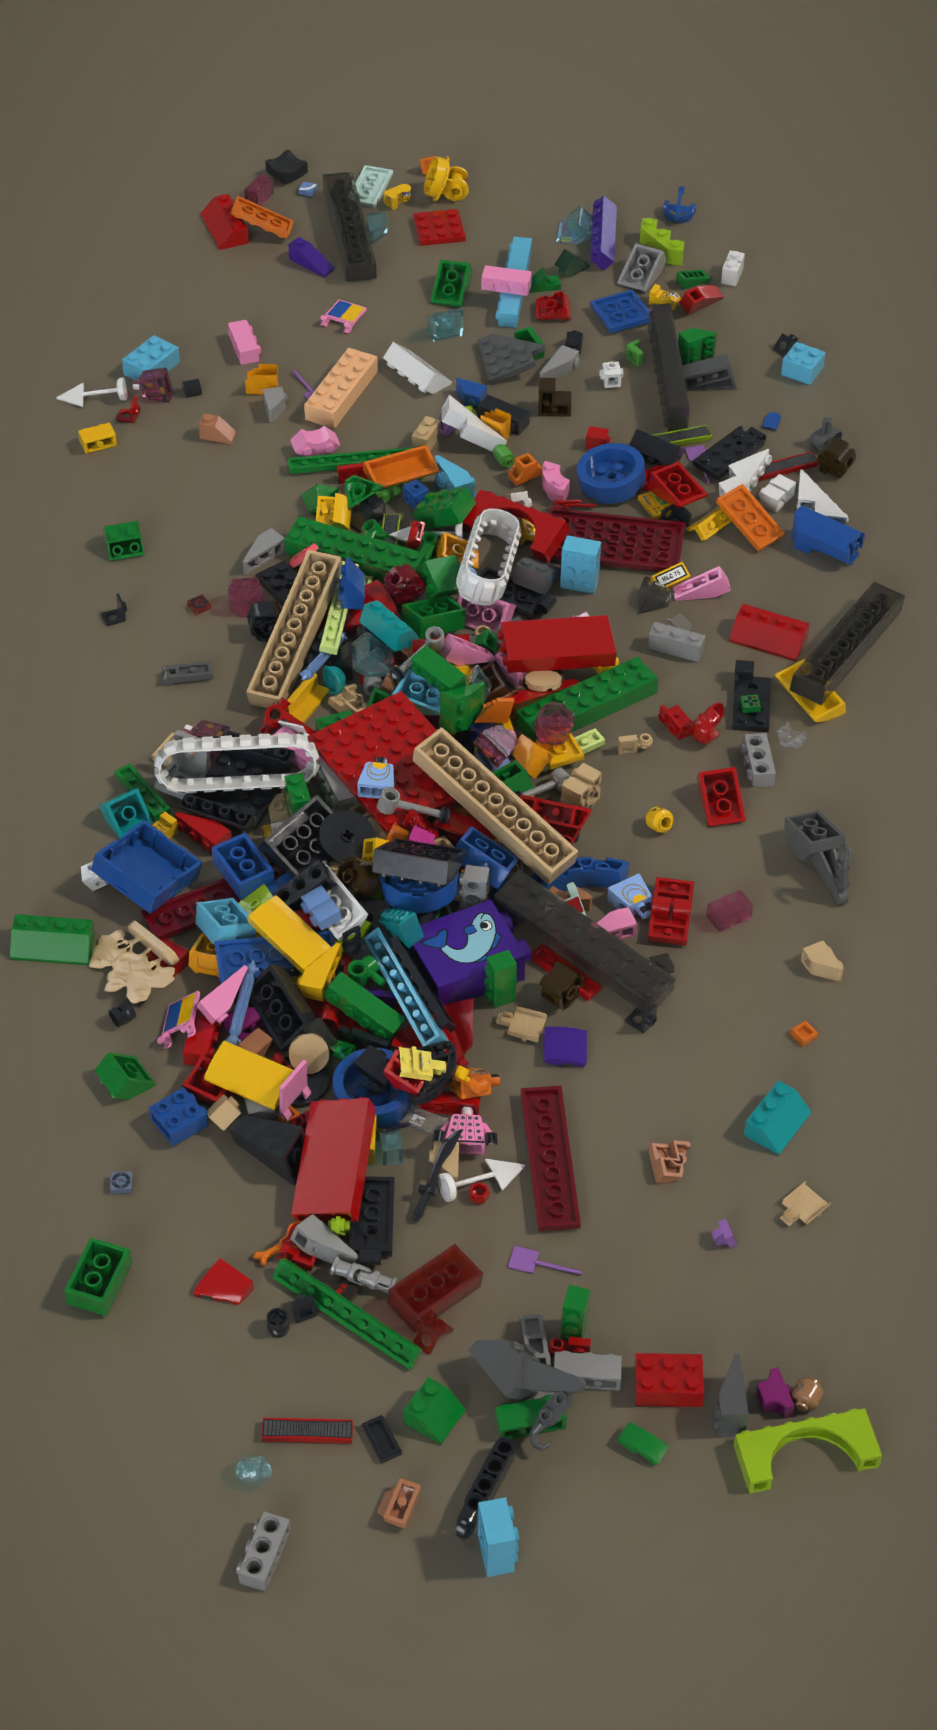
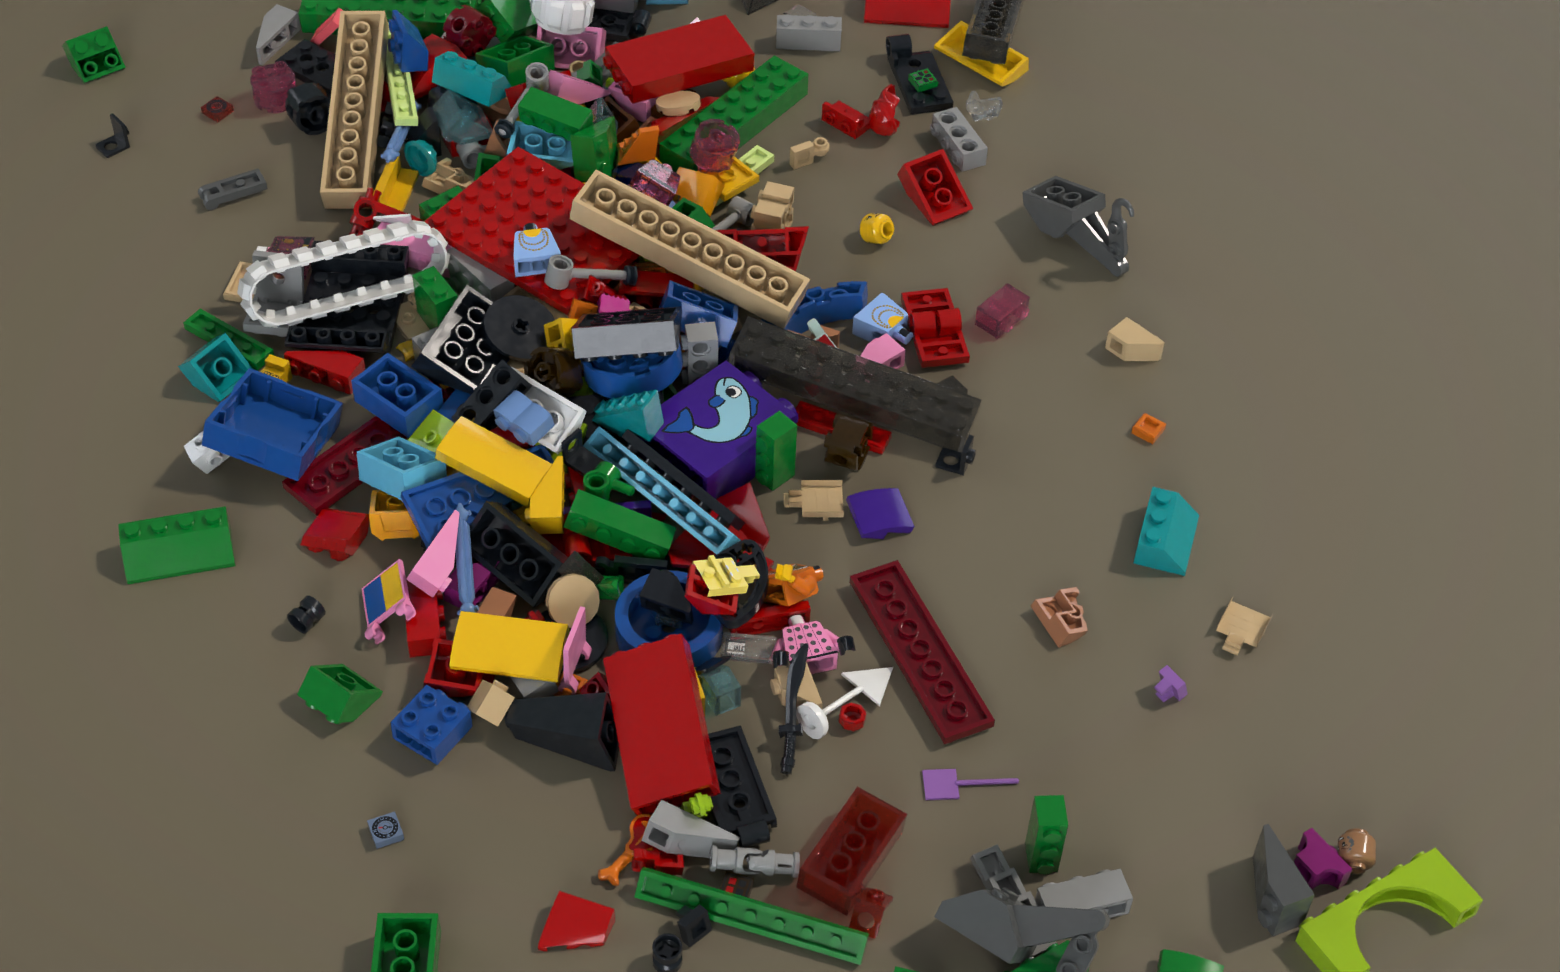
camera: 20 degrees left, 0 degrees up
(134, 969) = (302, 554): tan plant -> none
(574, 1345) = (1054, 872): red plate -> none
(669, 1380) = (1187, 882): red brick -> none

